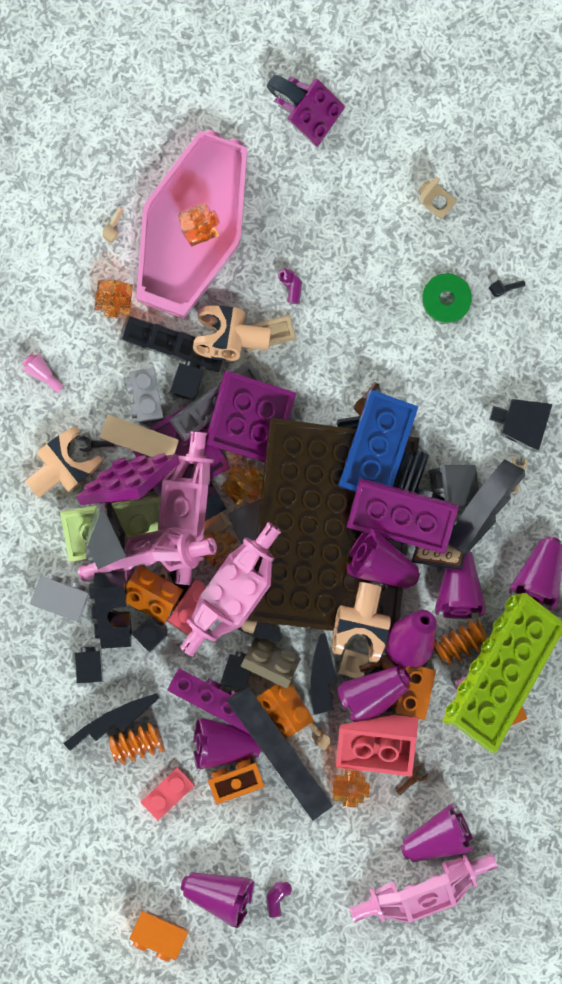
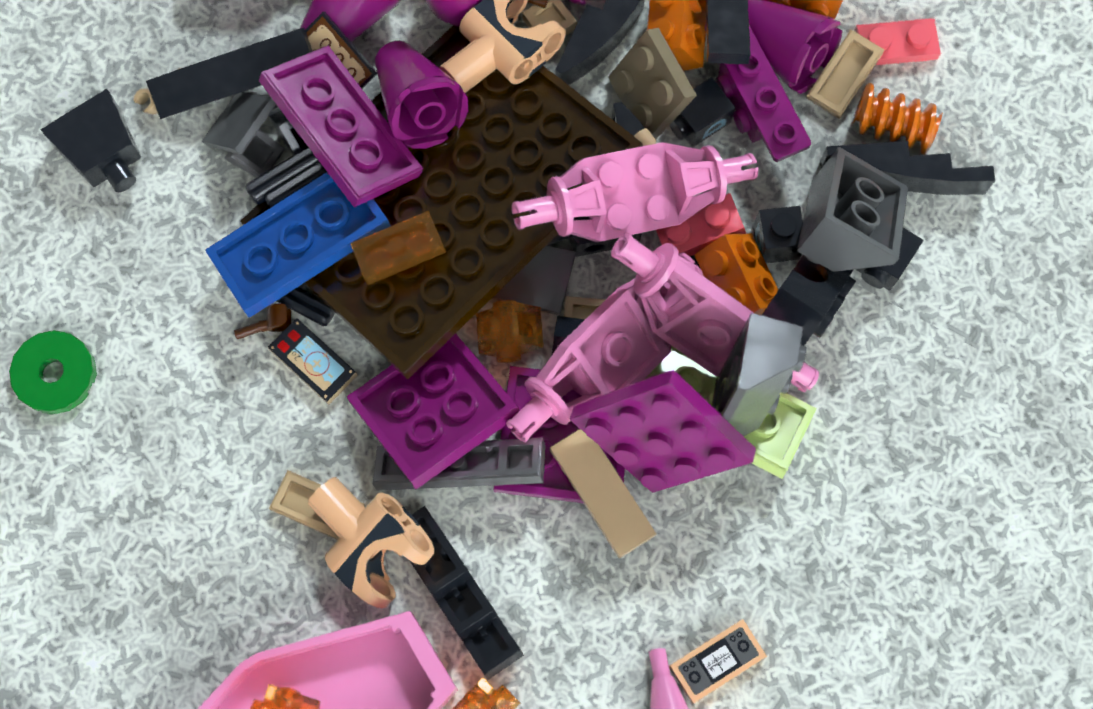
camera: 140 degrees left, 10 degrees down
(29, 405) = (717, 661): none -> tile
(60, 466) = (736, 540): light nougat connector -> none
(60, 598) = (865, 365): light grey brick -> none
(94, 444) = (669, 540): black hand -> none
(118, 664) = (853, 215): none -> dark grey slope
(146, 396) = (547, 544): light grey brick -> none
(180, 751) = (845, 74): none -> tan tile
(187, 381) = (476, 523): black brick -> none
(228, 541) = (597, 282): clear orange brick -> none
(292, 283) = (230, 550): magenta arm -> none
(324, 476) = (398, 248): none -> clear orange plate
(328, 399) = (312, 361): none -> tile

